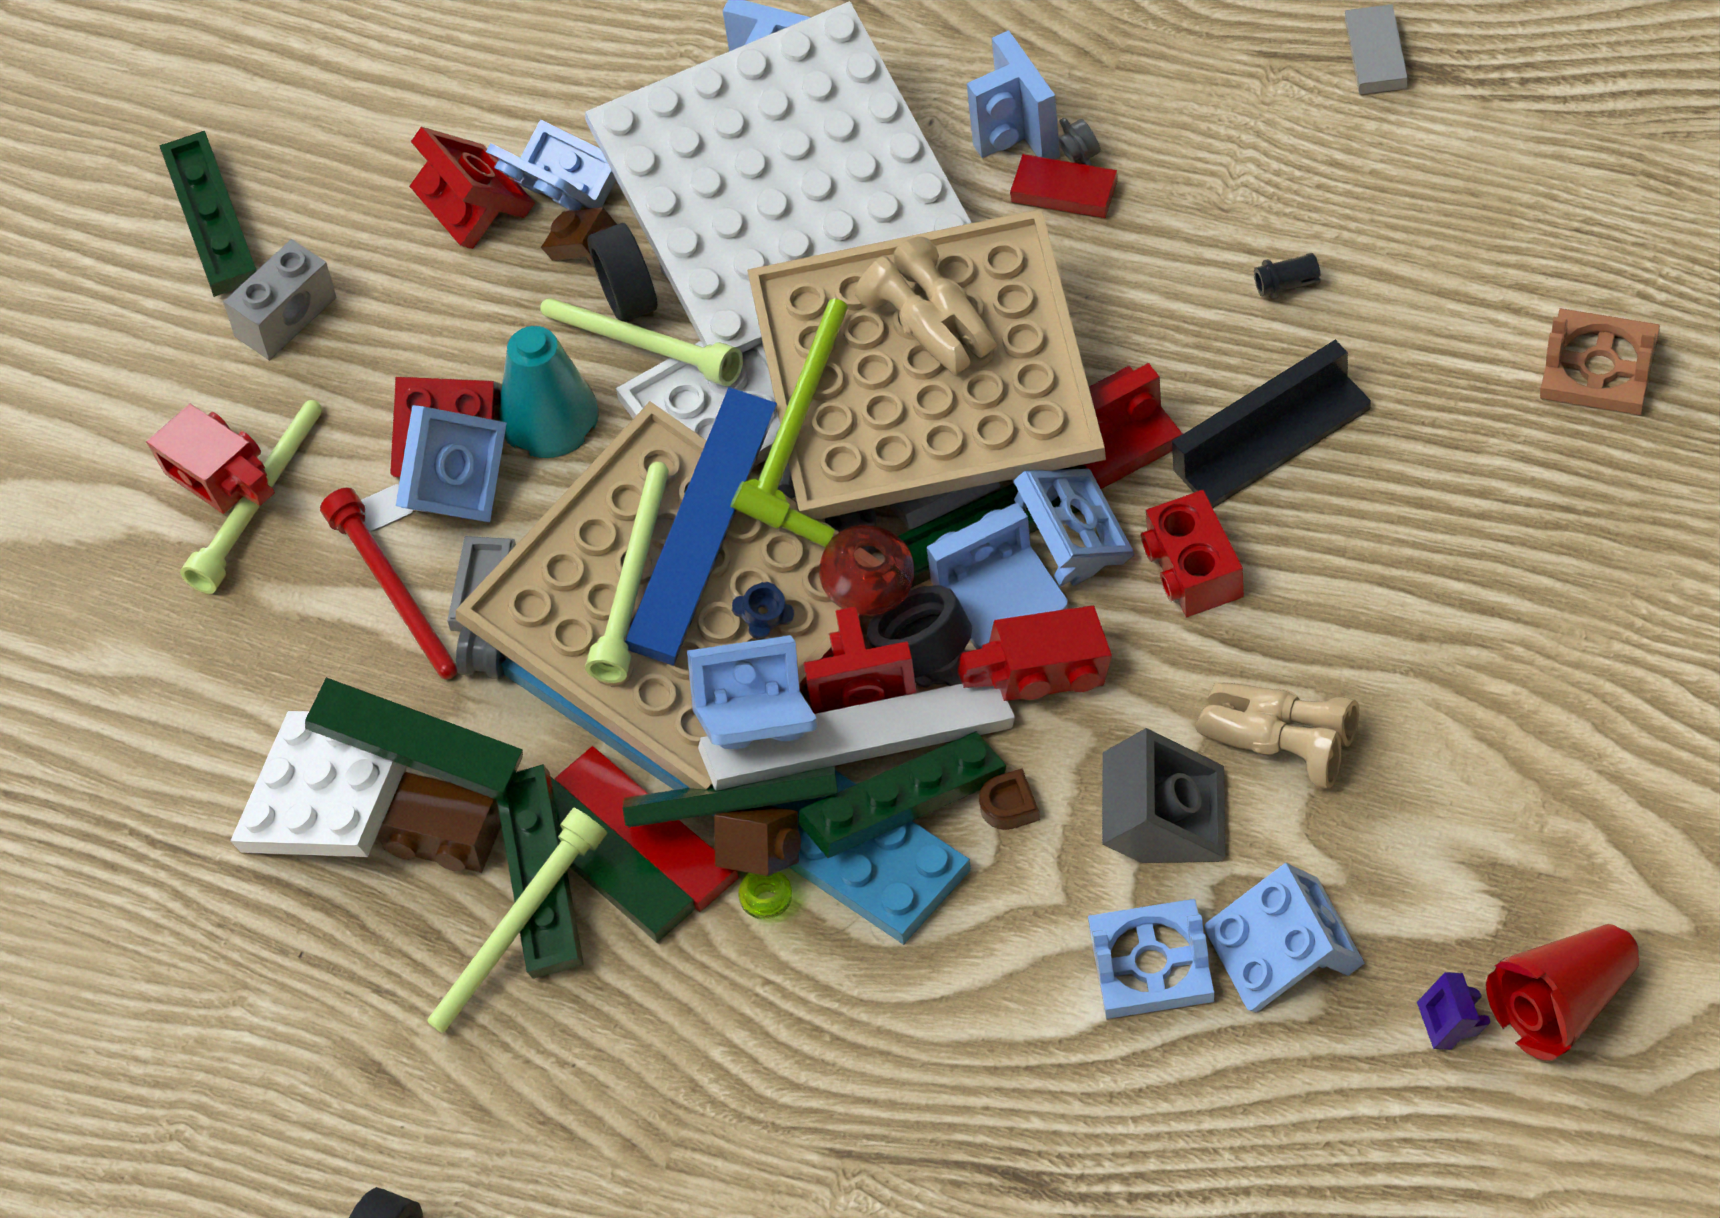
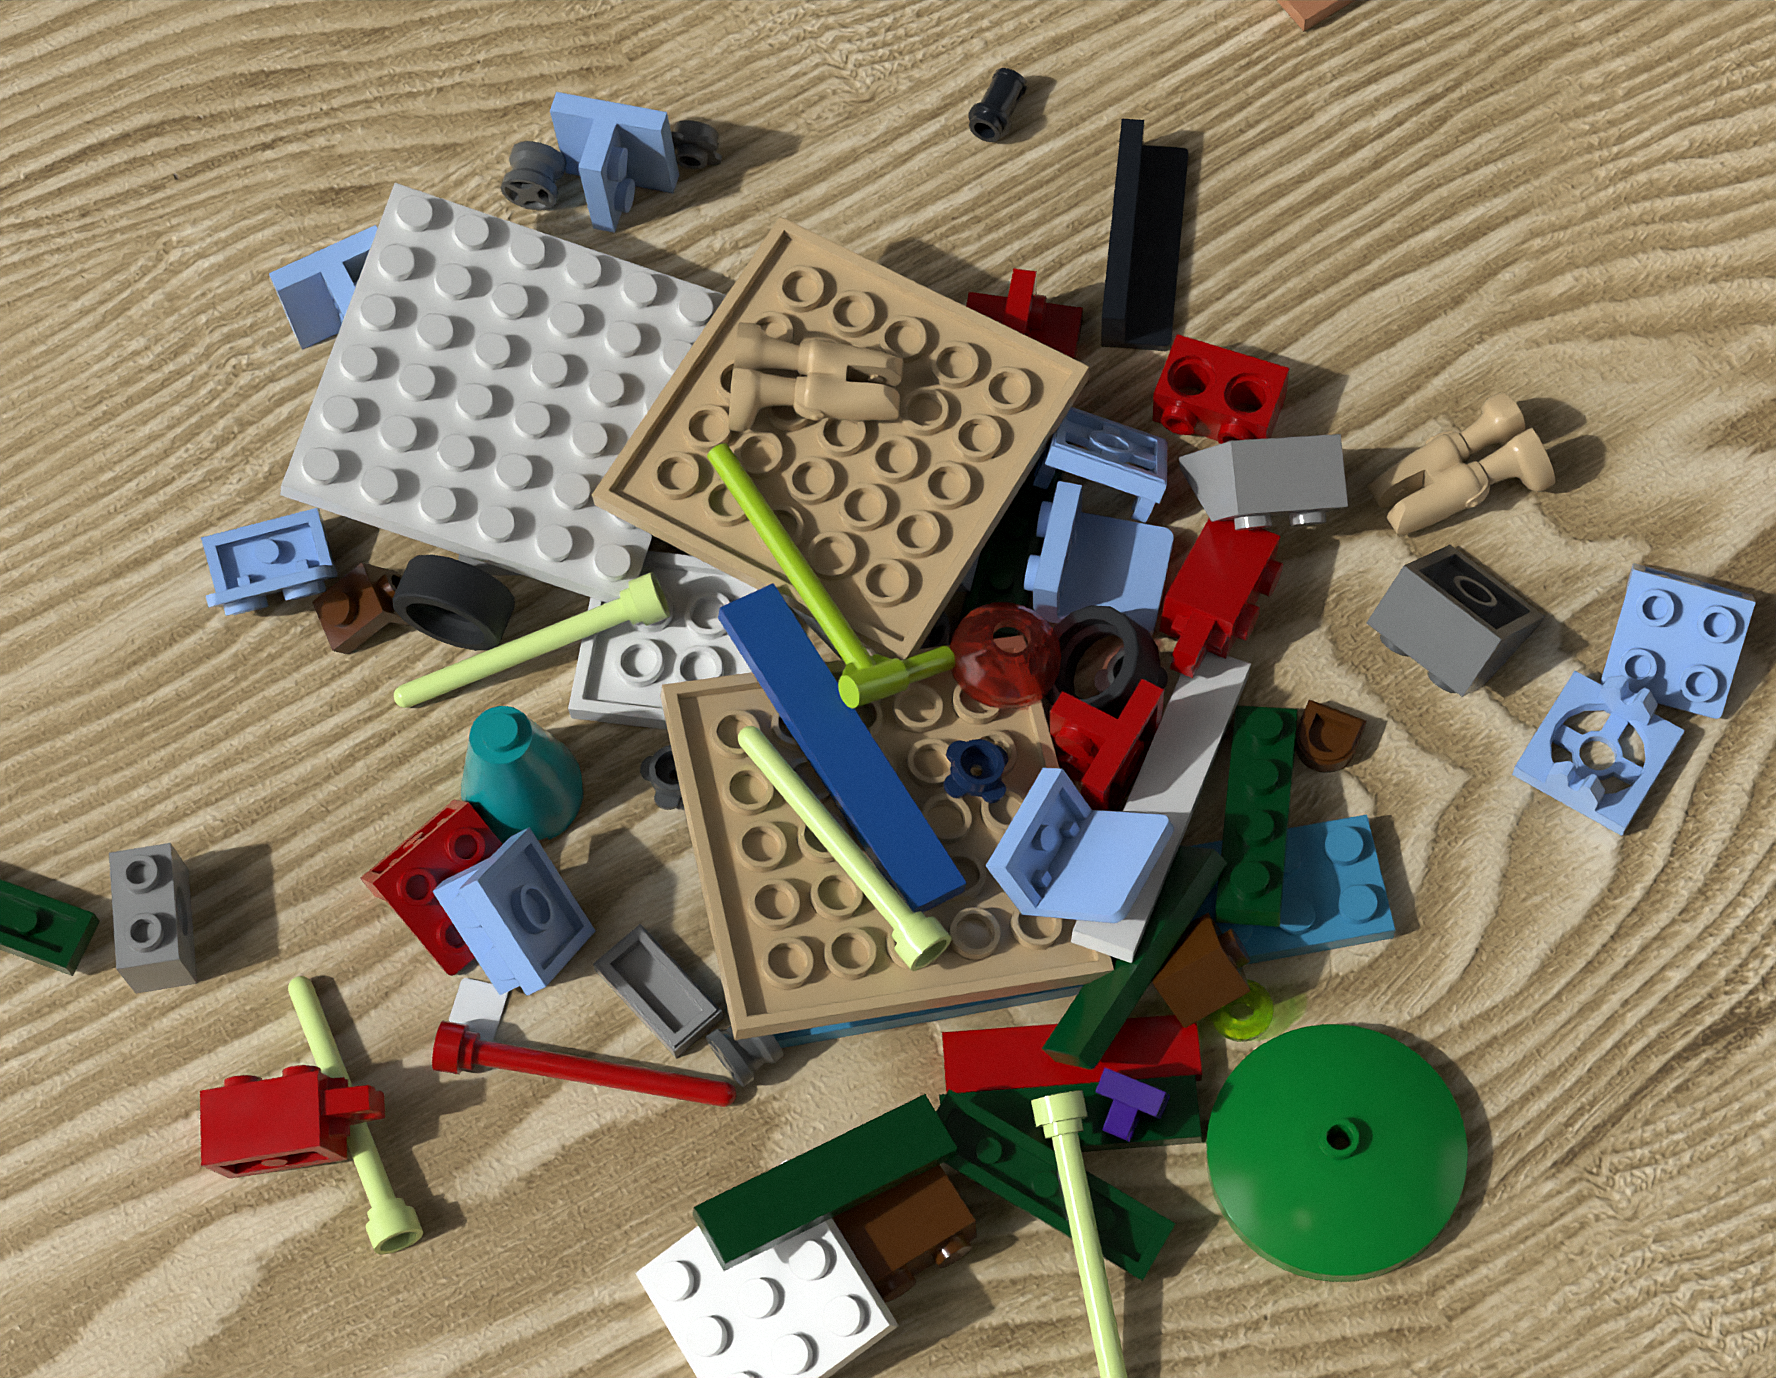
camera: 50 degrees left, 10 degrees up
(464, 185) = (198, 661): red bracket -> none
(630, 869) = (1129, 1102): none -> dark purple tile
(718, 1018) = (1325, 1207): none -> green dish
(955, 78) = (533, 175): none -> dark grey wheel
(1064, 186) = (720, 193): red tile -> none
(1139, 615) = (1269, 479): none -> light grey slope

